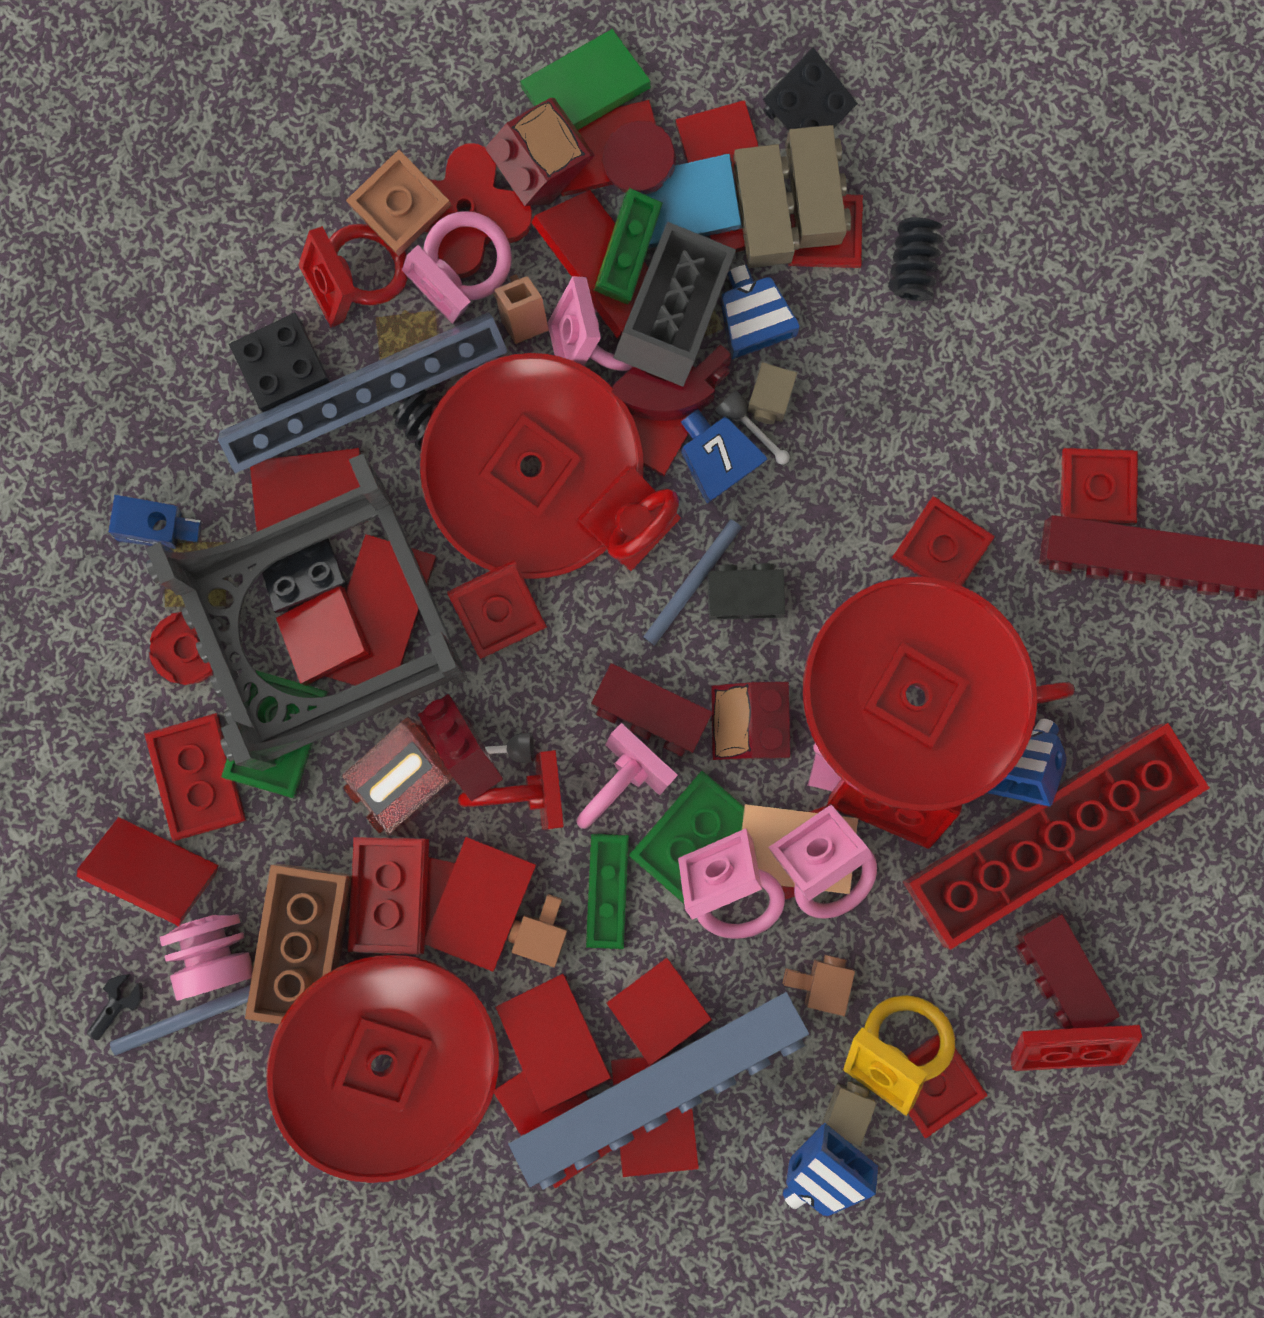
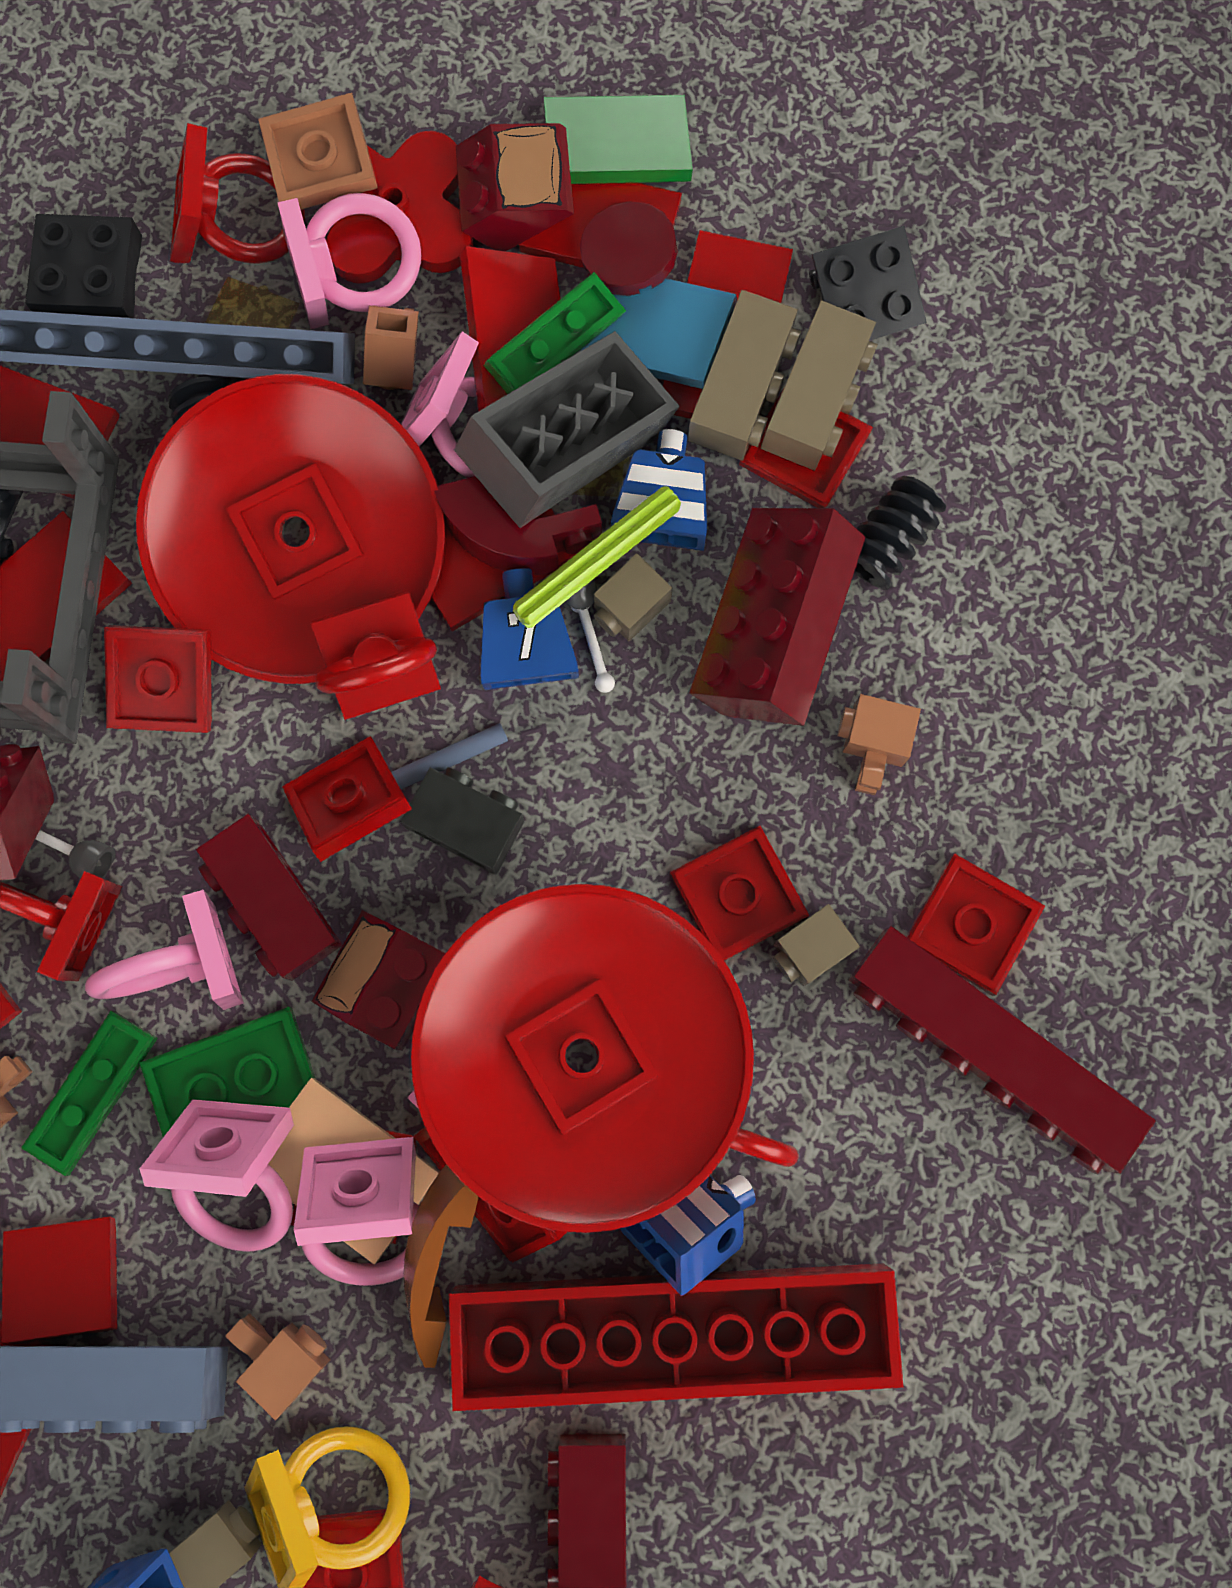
camera: 25 degrees right, 5 degrees down
(664, 620) = (346, 798): none -> red tile
(741, 378) = (596, 557): none -> lime axle
(874, 354) = (778, 614): none -> dark red brick
(880, 828) = (444, 1205): none -> dark orange slope
(977, 397) = (880, 734): none -> nougat brick
(1009, 554) = (814, 946): none -> dark tan brick

